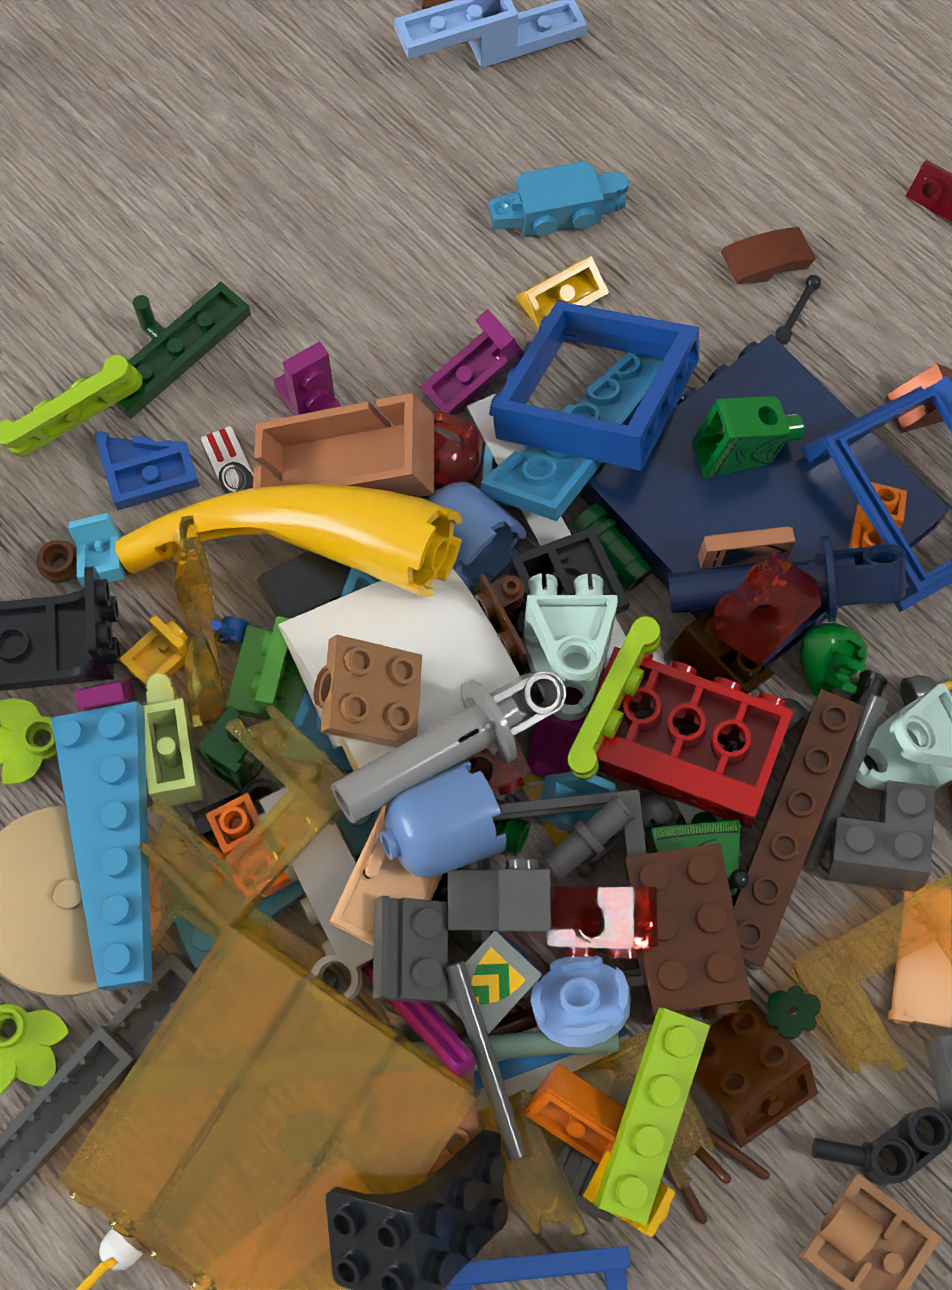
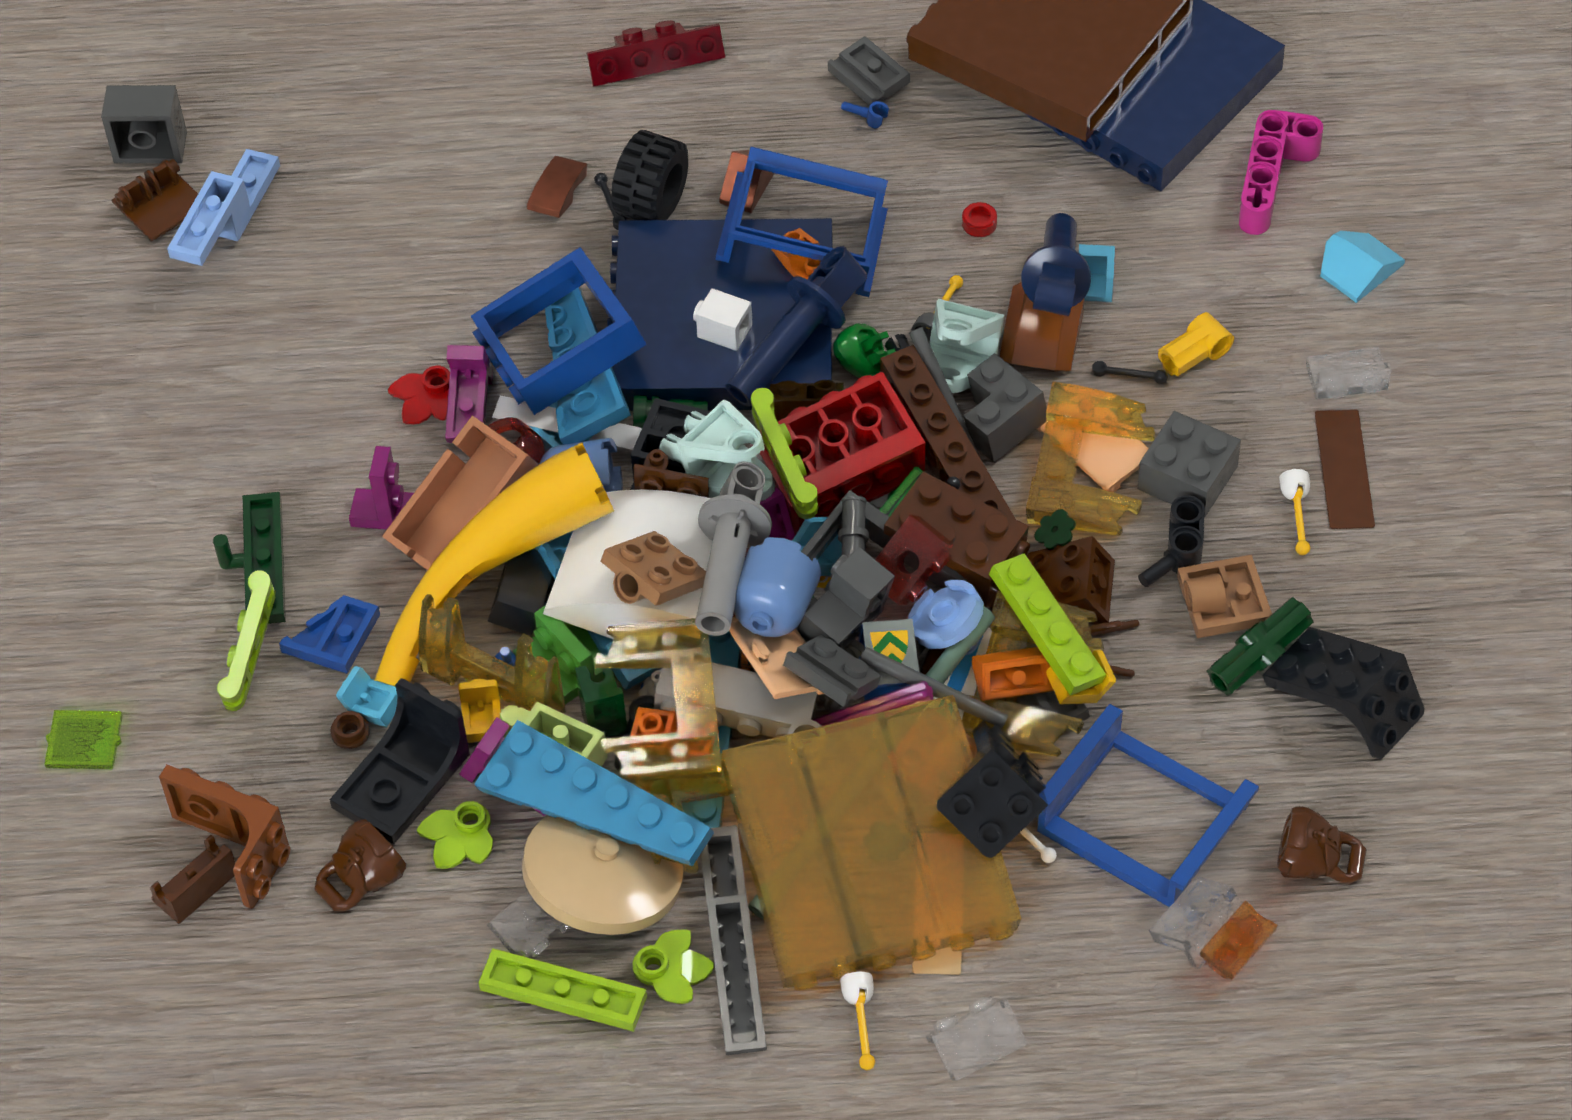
camera: 45 degrees left, 15 degrees down
(228, 460) = (378, 588): sticker -> none
(450, 332) = (421, 394): none -> red plate
(559, 199) = (392, 266): dark azure hinge -> none
(574, 284) = (454, 319): yellow slope -> none
(739, 505) = (723, 319): none -> white brick
(744, 434) = (676, 279): green torso -> none
(745, 547) = (750, 333): nougat tile -> none
(759, 631) = (815, 357): clear red brick -> none
(838, 320) = (649, 177): none -> black tyre

